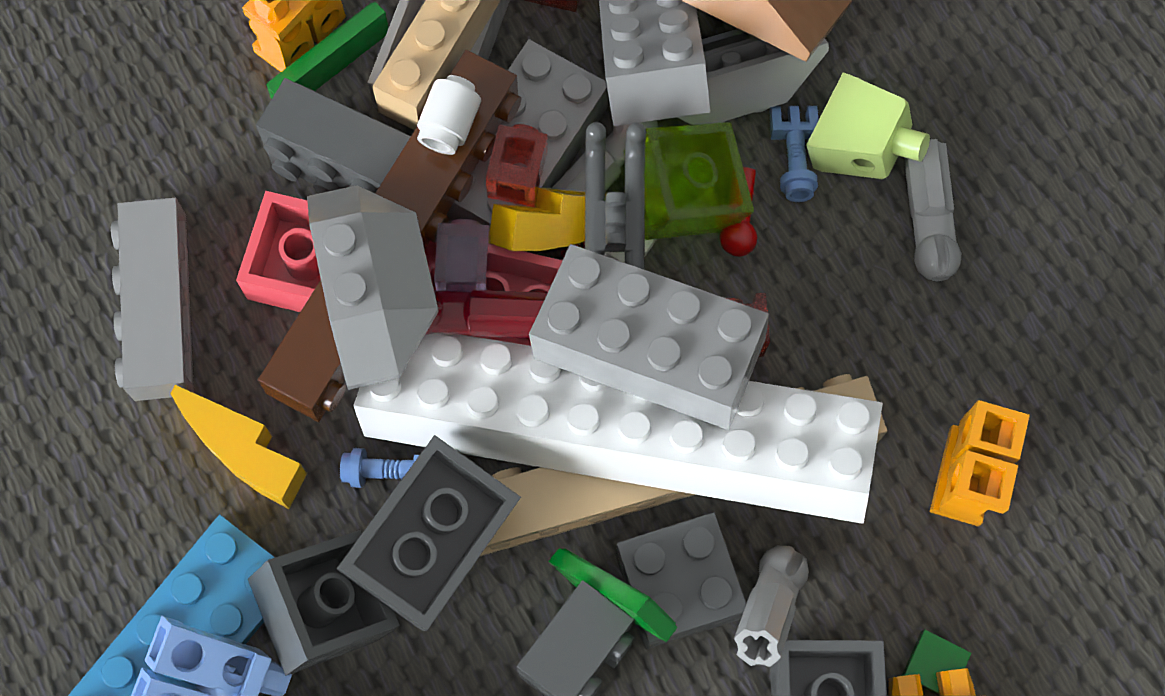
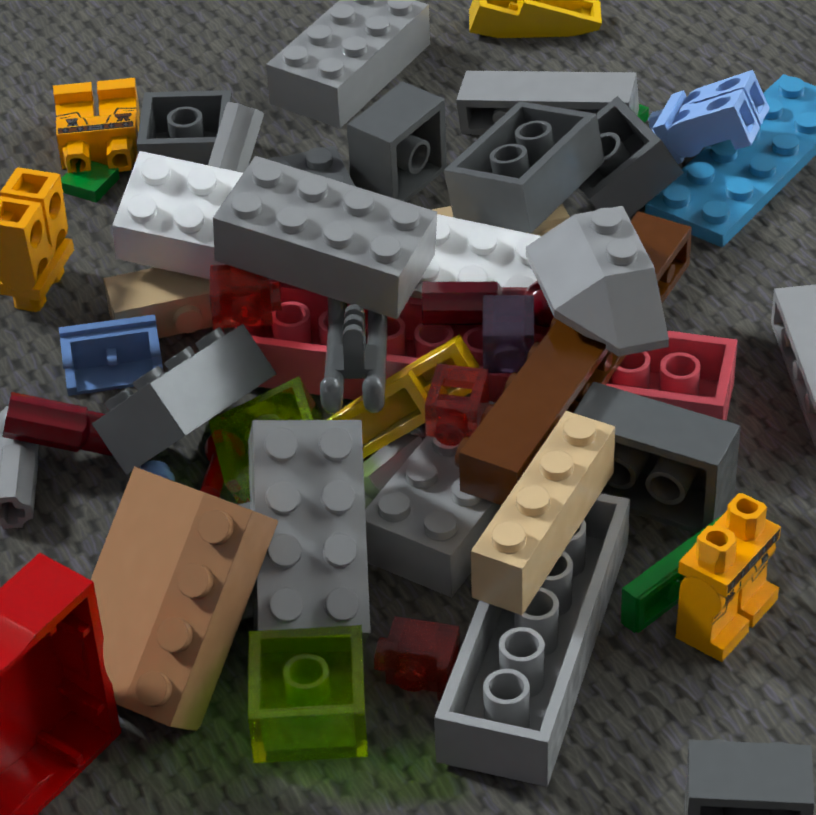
camera: 175 degrees left, 30 degrees down
(242, 447) = (729, 277): yellow slope -> none
(448, 114) = (528, 391): white brick -> none
(633, 602) = (361, 150): green tile -> none
(778, 217) = (182, 398): none -> dark grey brick
(864, 131) = (69, 508): yellowish green torso -> none
(864, 349) = (109, 353): none -> medium blue hinge
(884, 227) = (53, 424): none -> dark red piece

